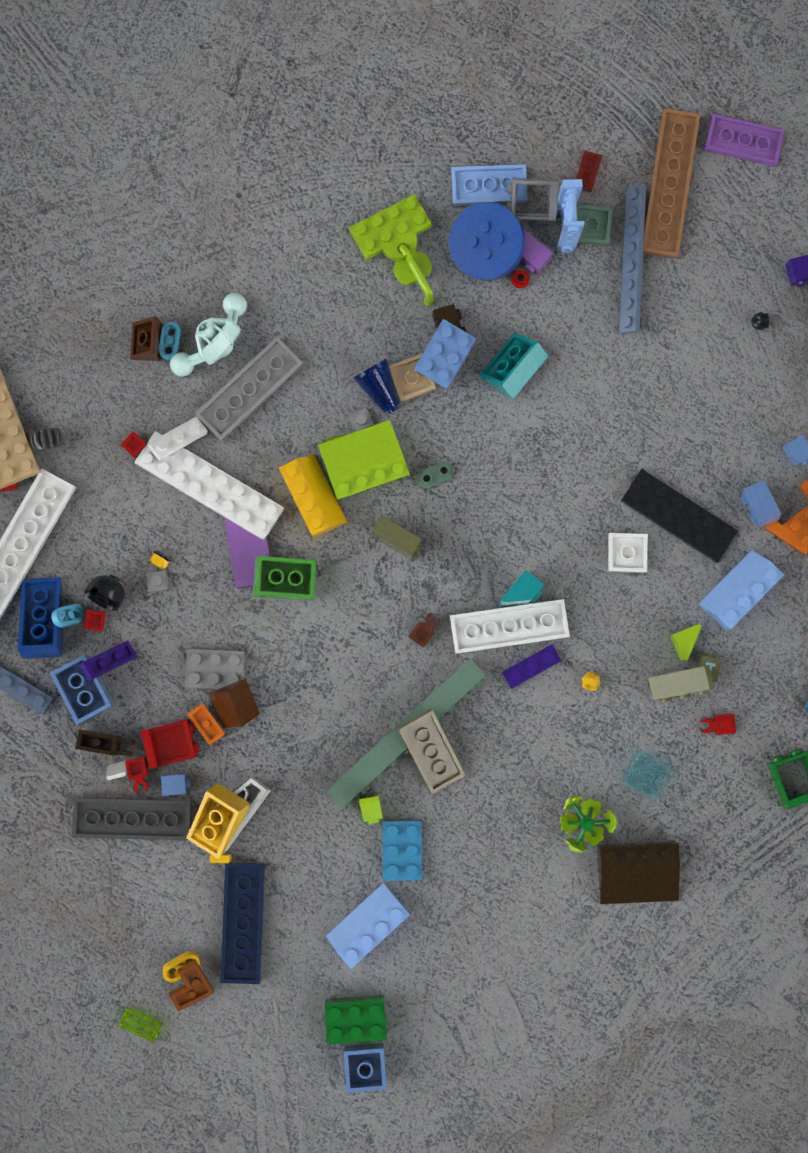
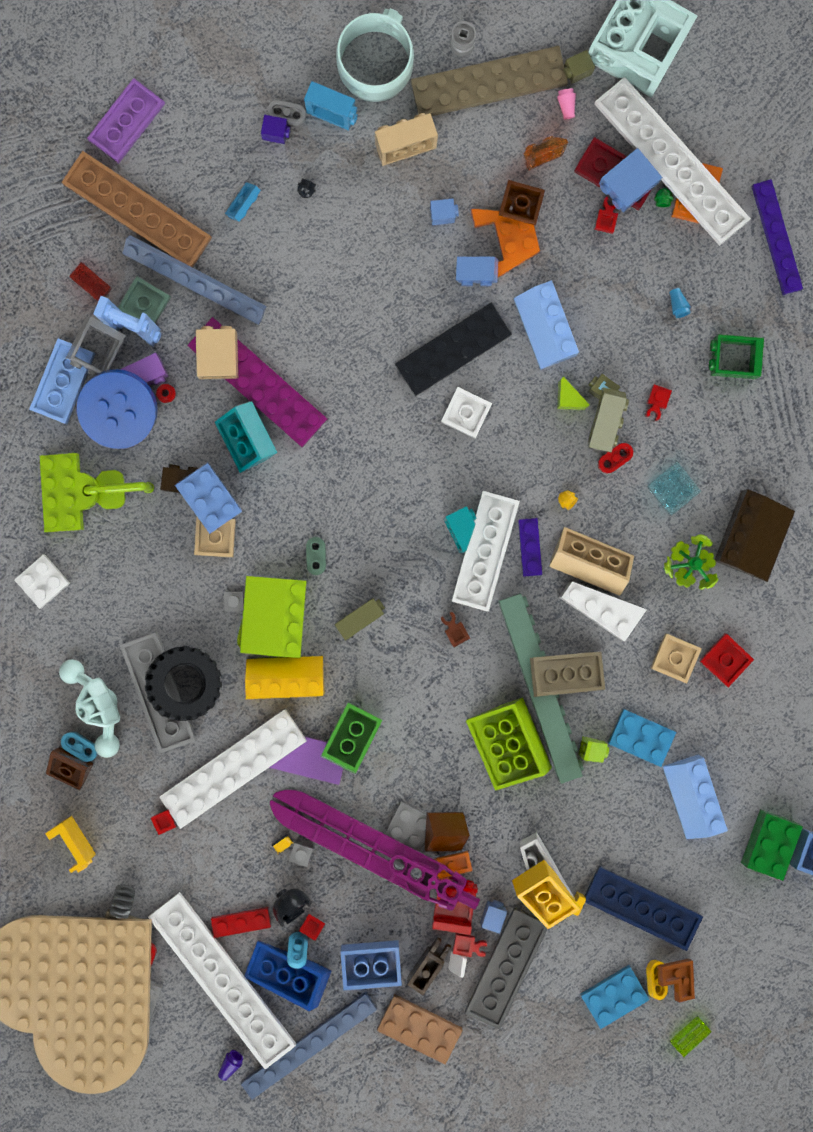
camera: 60 degrees left, 5 degrees up
(40, 763) = (419, 1029): none -> medium nougat plate
(71, 555) = (241, 922): none -> red plate
(83, 373) = (75, 842): none -> yellow panel
(108, 660) = (355, 931): dark purple plate -> none
(147, 934) = (614, 996): none -> dark azure plate
(177, 438) = (176, 779): white plate -> none
(199, 646) = (365, 857): none -> magenta piece
(294, 405) = (209, 689): none -> black tyre
(303, 245) = (42, 581): none -> white plate
(341, 727) = (509, 744): none -> lime slope
(380, 386) = (210, 570): clear blue cone -> none
(490, 848) = (676, 658): none -> tan plate
(505, 763) = (607, 611): none -> white wedge
(510, 897) = (726, 660): none -> red plate
(544, 729) = (592, 561): none -> tan slope
(567, 355) = (272, 395): none -> magenta plate
(577, 306) = (217, 353): none -> tan brick
(649, 708) = (615, 458): none -> red plate
(723, 271) = (242, 202): none -> dark azure plate

